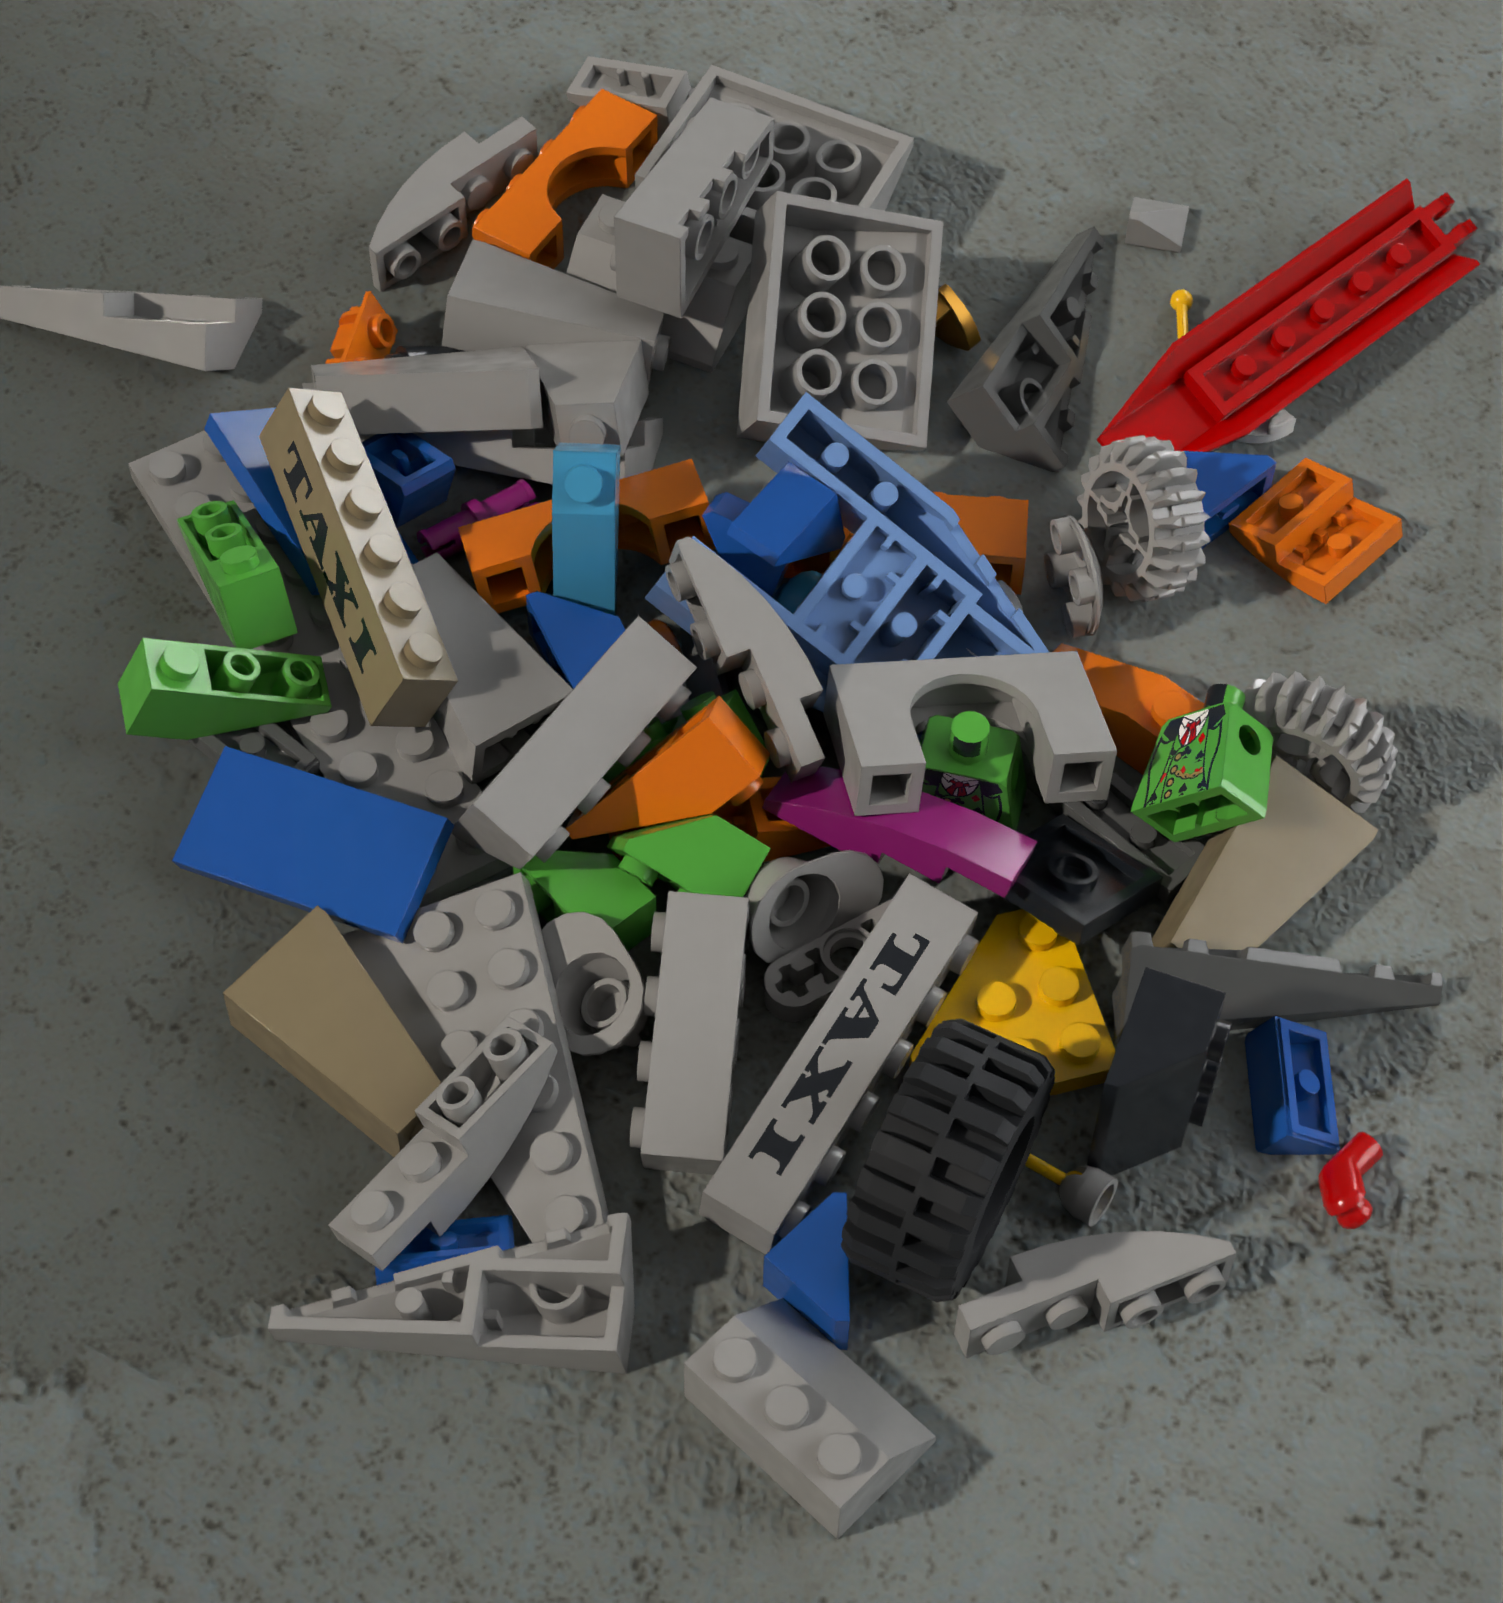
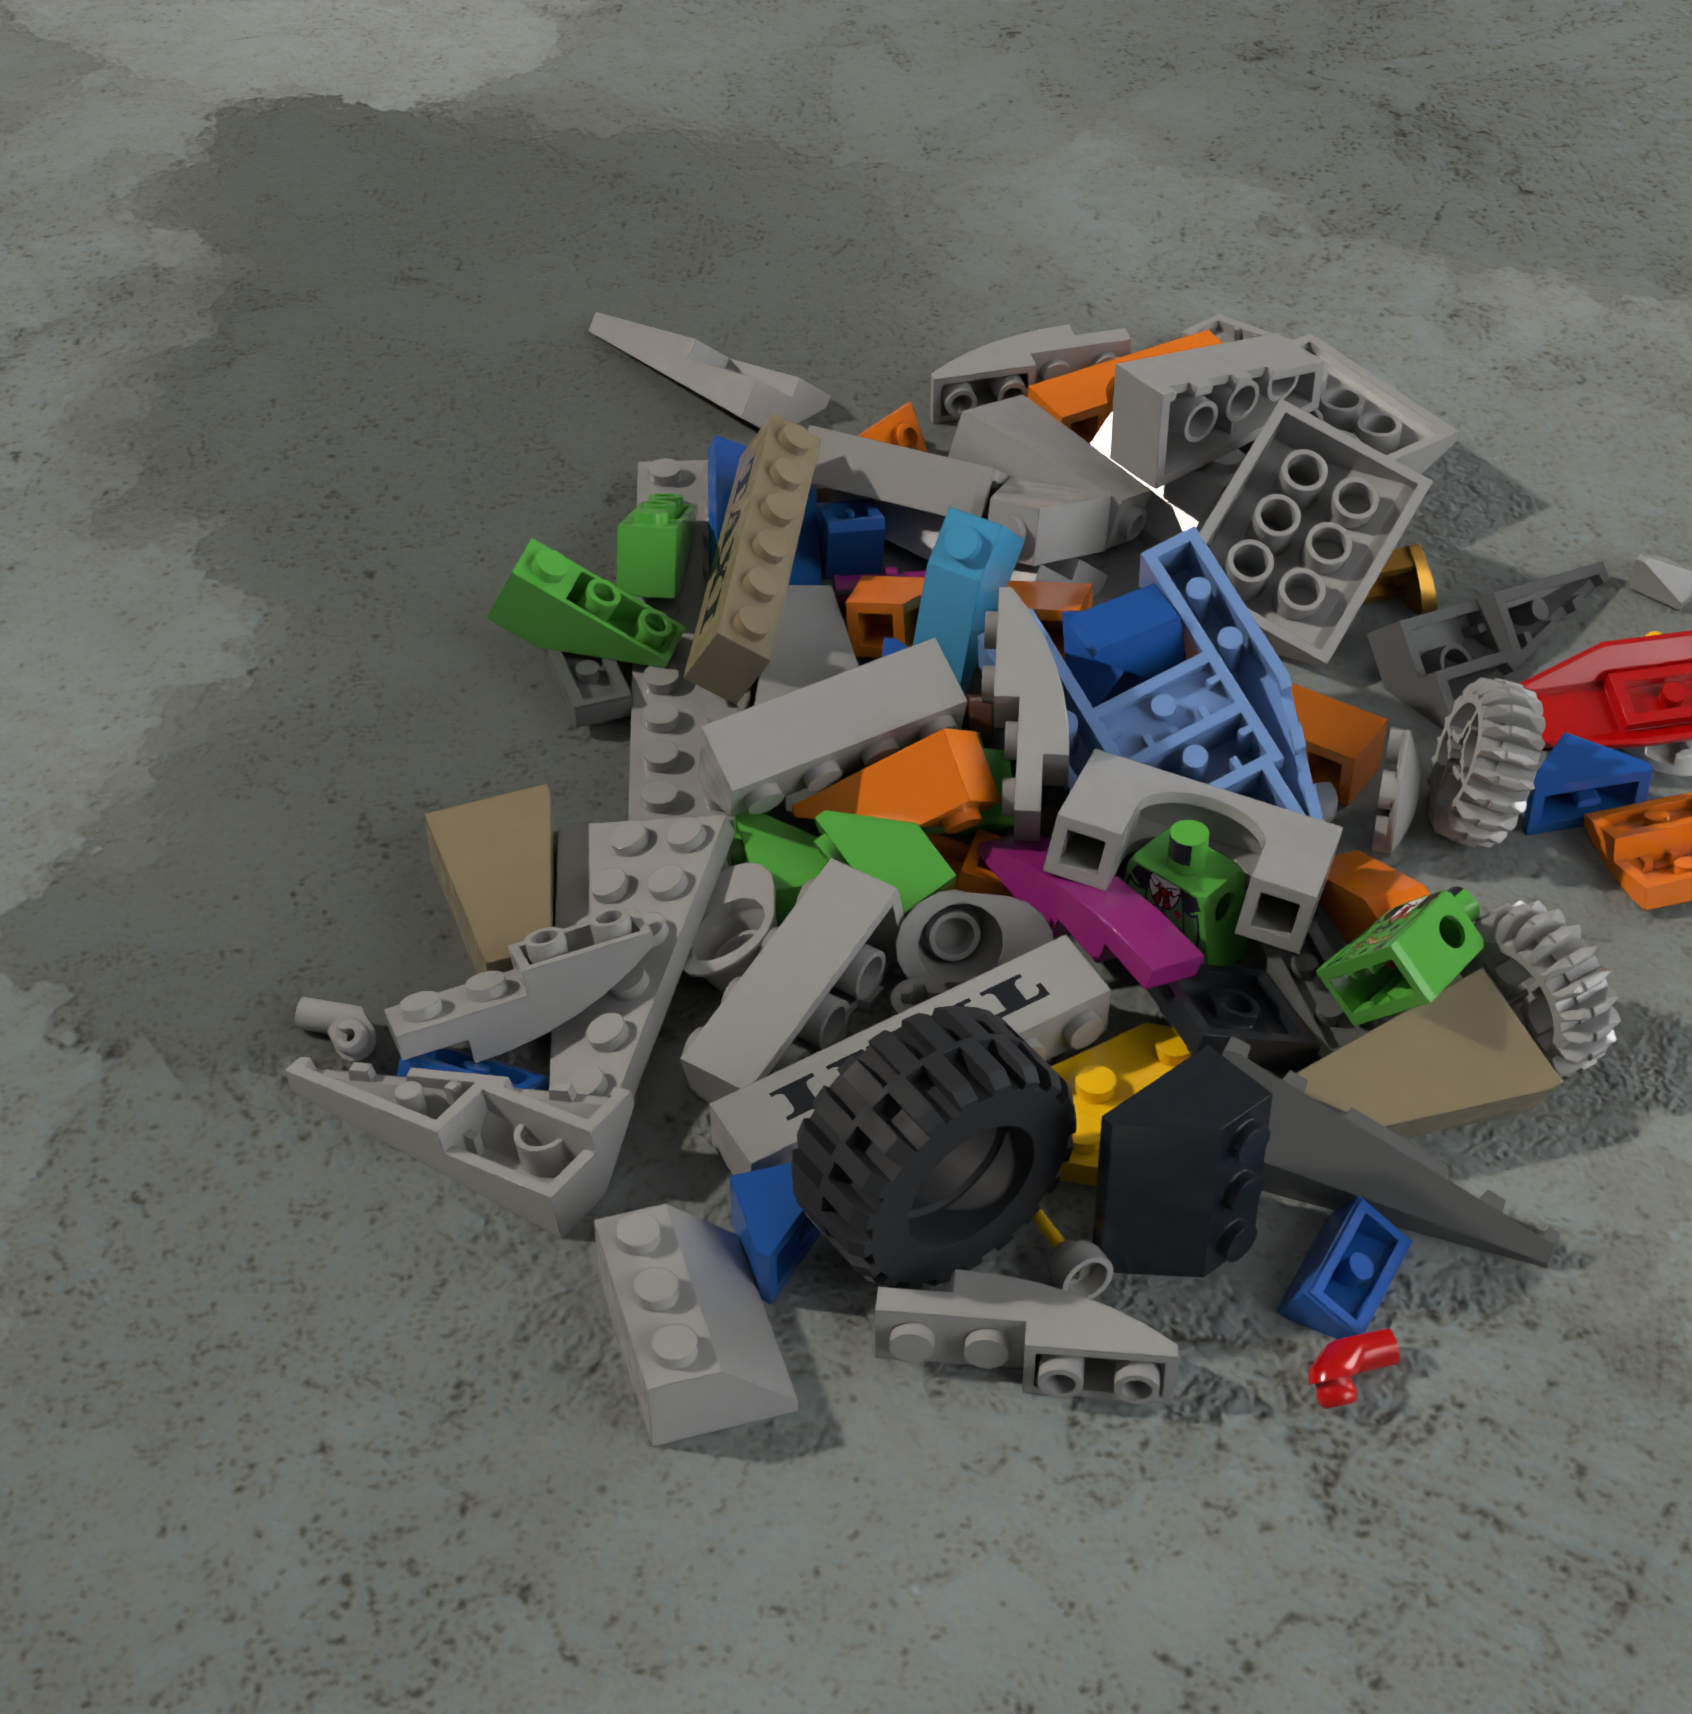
camera: 30 degrees right, 15 degrees down
(285, 1249) = (344, 1023): none -> light grey arm
(314, 843) = (582, 743): blue tile -> none

